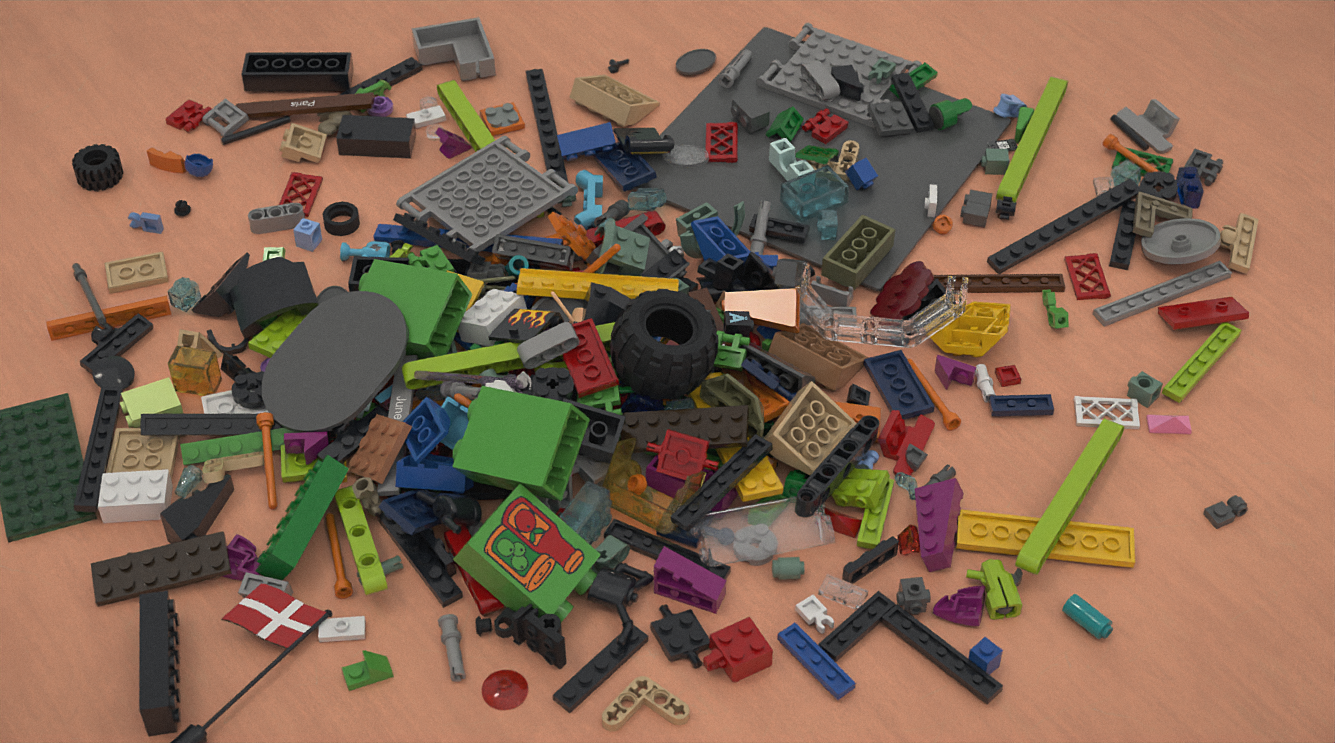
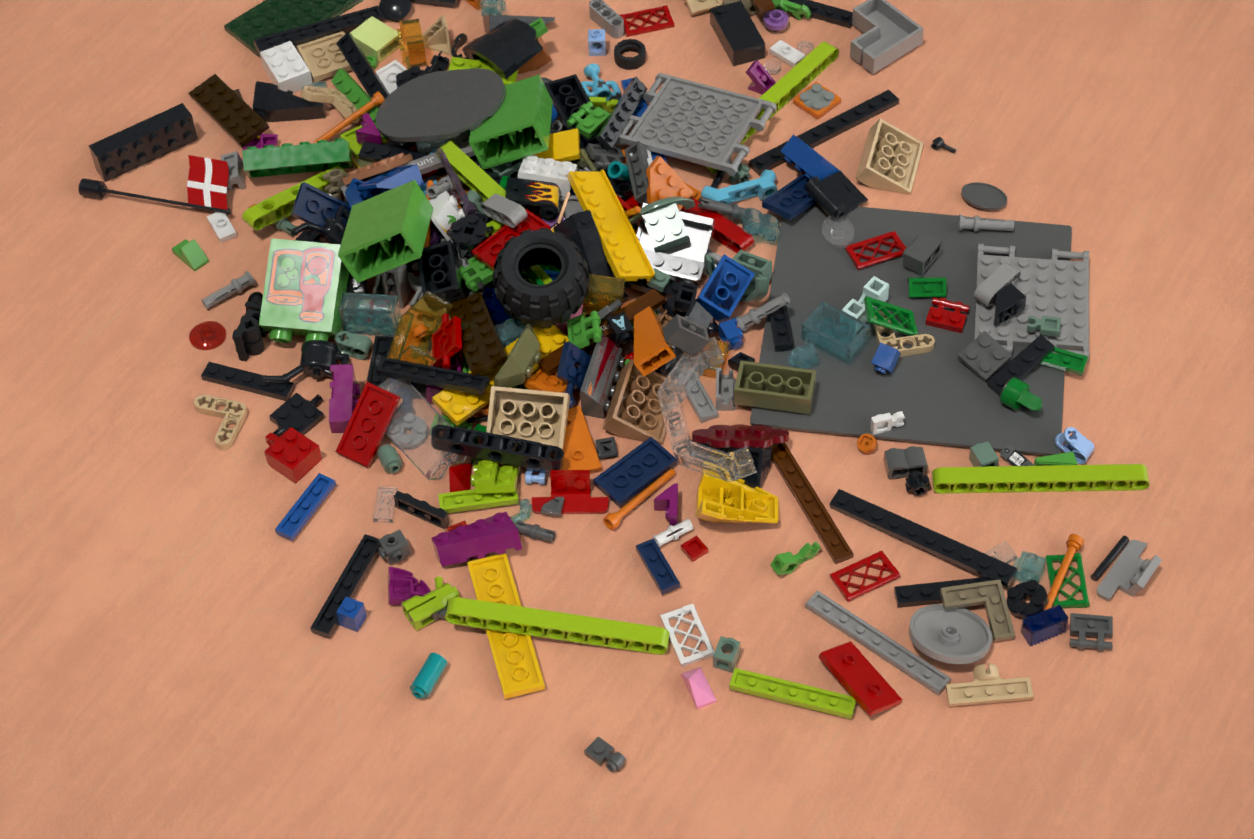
camera: 70 degrees right, 5 degrees up
(743, 565) = (368, 424): none -> red plate
(814, 611) = (352, 490): white plate -> none
(856, 626) = (350, 521): black plate -> none

